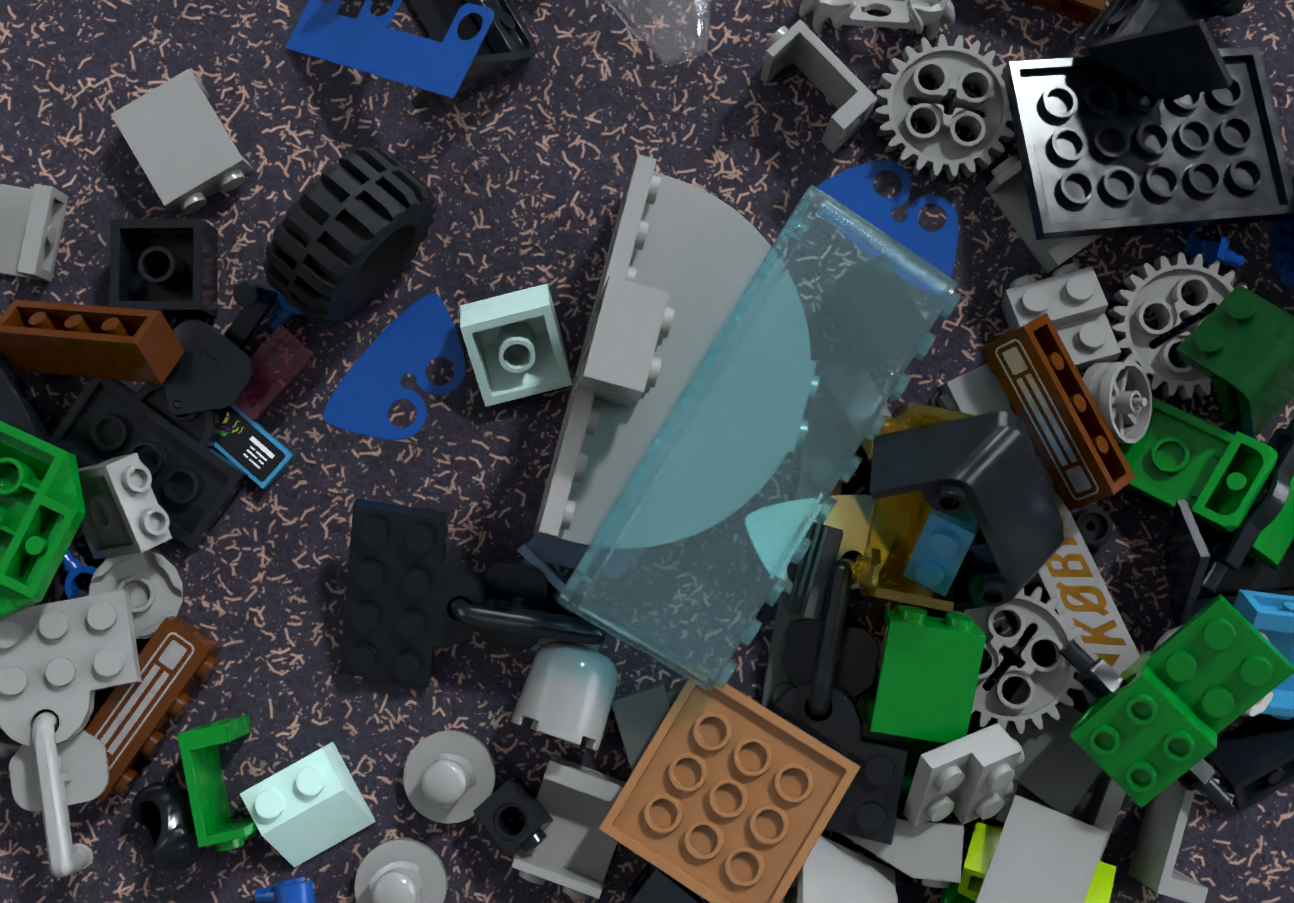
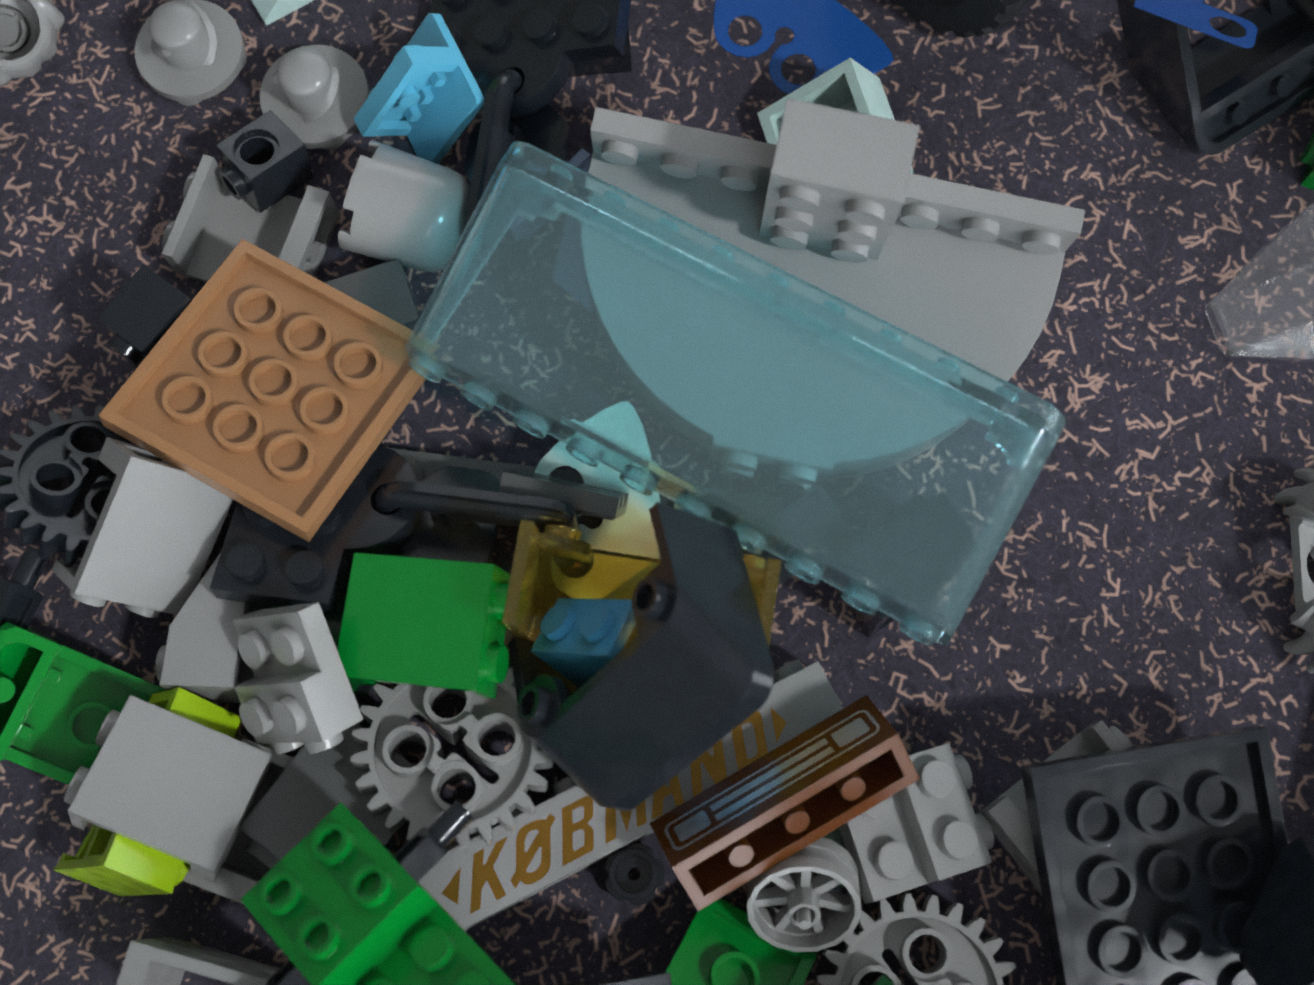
camera: 90 degrees right, 10 degrees down
(460, 680) = (424, 93): none -> medium azure bracket
(826, 73) = (1165, 522): light grey panel -> none
(856, 191) = (1027, 570): blue piece -> none
(941, 147) = (1136, 652): light grey gear -> none

